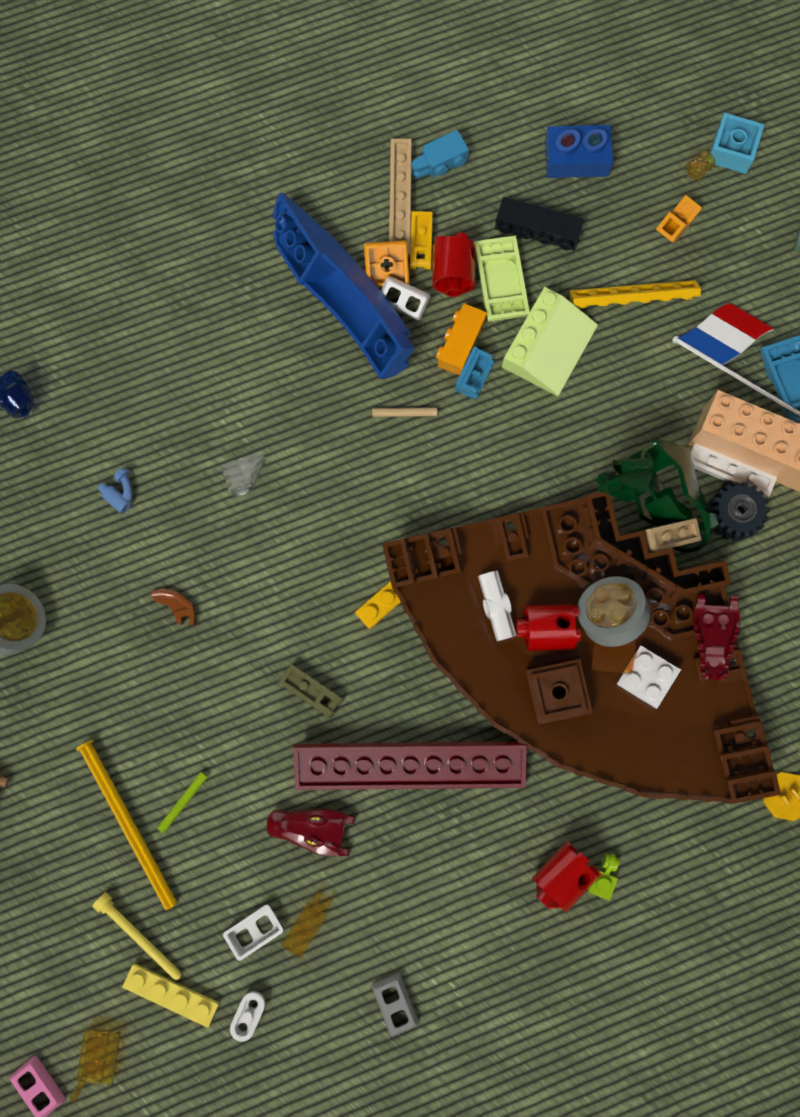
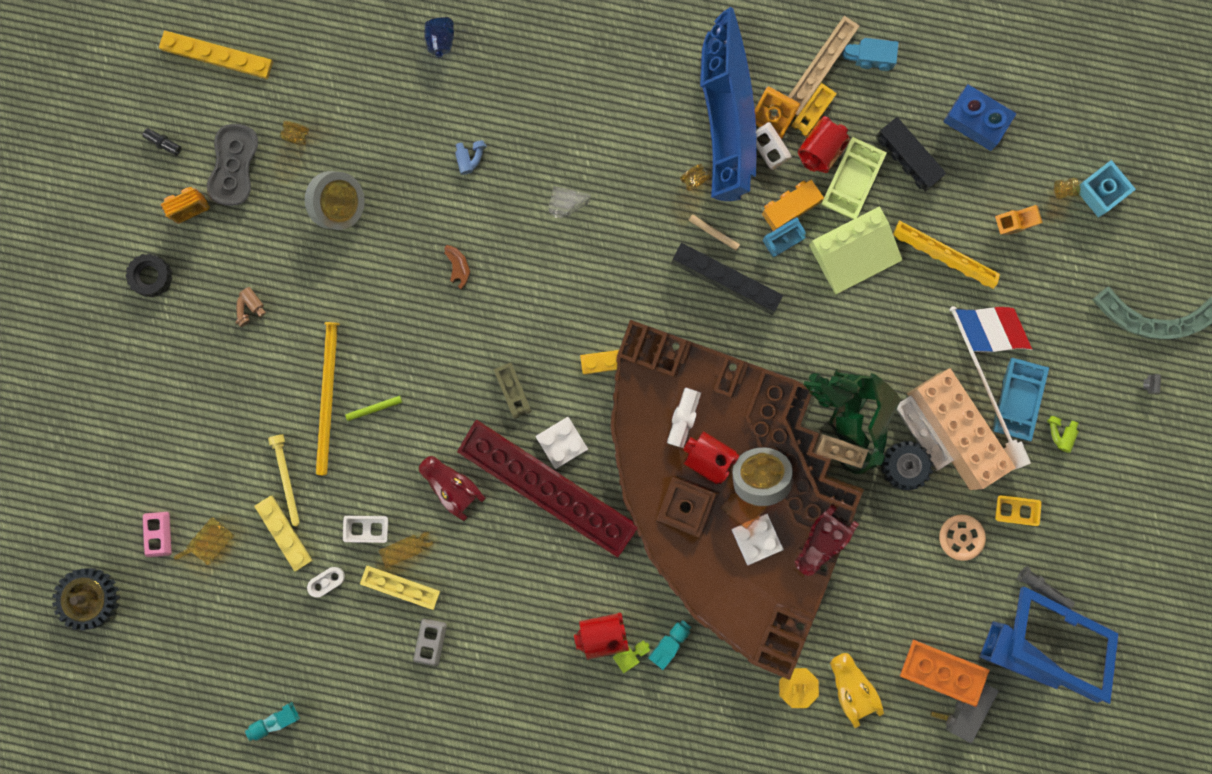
camera: 30 degrees right, 5 degrees up
(328, 969) = (400, 587): none -> light yellow plate
(351, 371) = (694, 177): none -> clear yellow wheel
(393, 710) = (561, 442): none -> white plate
(447, 447) = (726, 279): none -> black brick
(635, 844) = (669, 645): none -> teal piece

